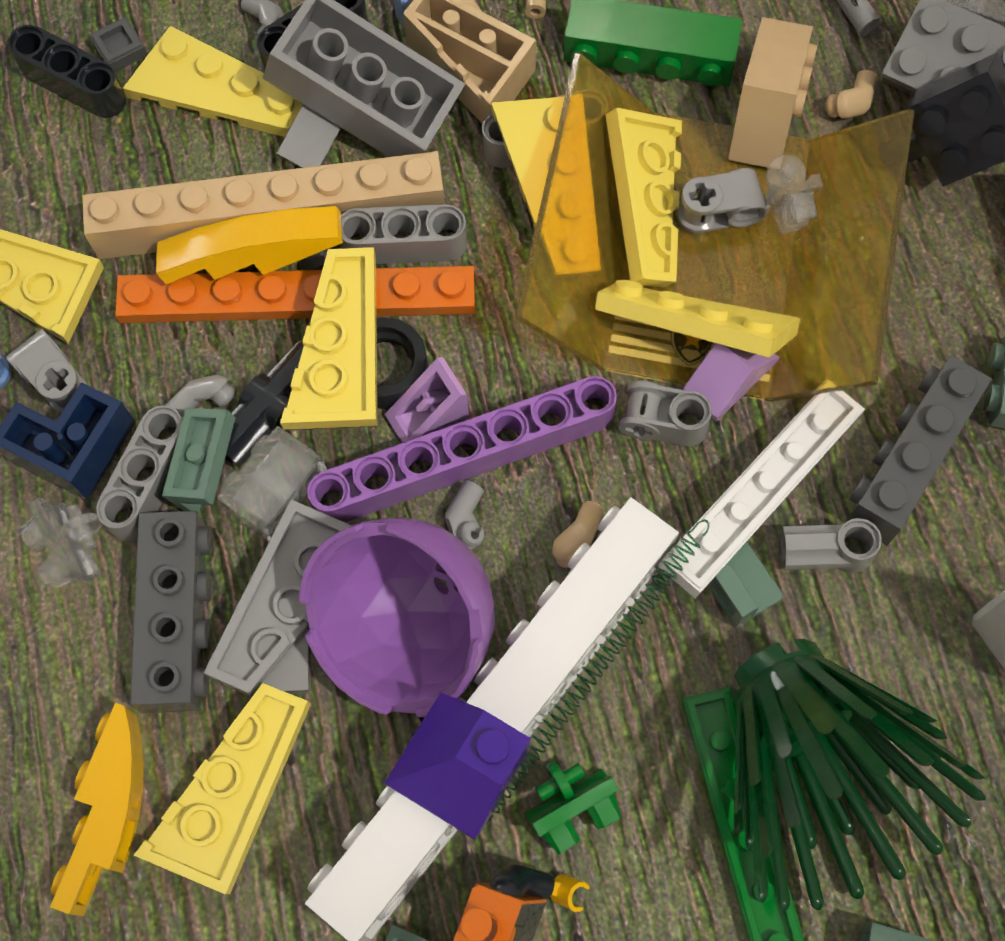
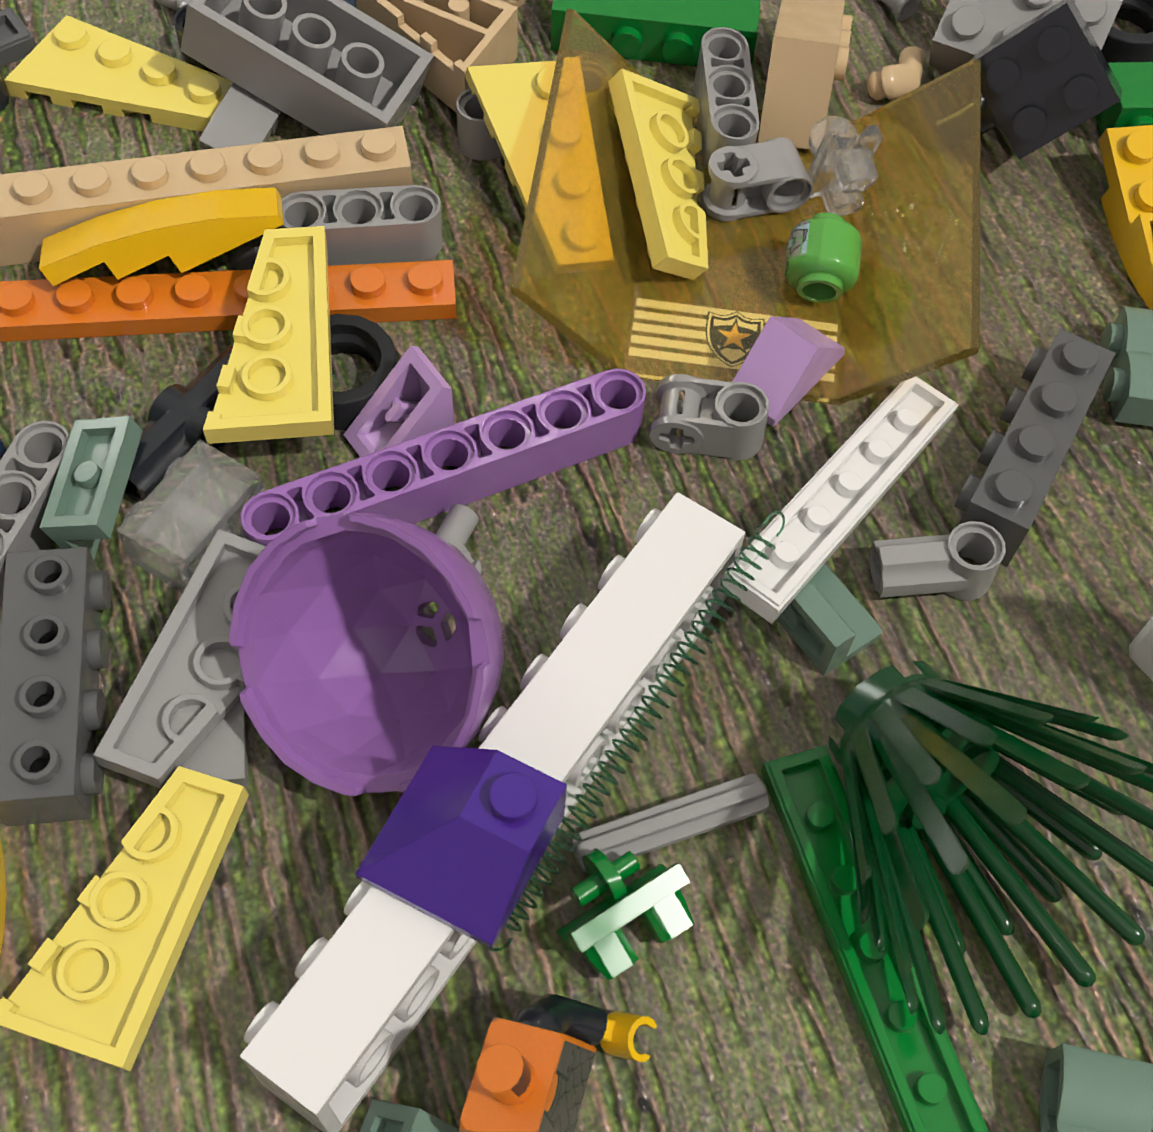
camera: 10 degrees left, 10 degrees down
(201, 389) = (104, 406): light grey arm -> none
(579, 532) = (618, 541): tan arm -> none
(613, 738) = (676, 820): none -> light grey axle
(707, 109) = (725, 92): none -> light grey beam
(708, 320) = (756, 297): light yellow wing -> none
(768, 278) = (823, 257): none -> bright green head

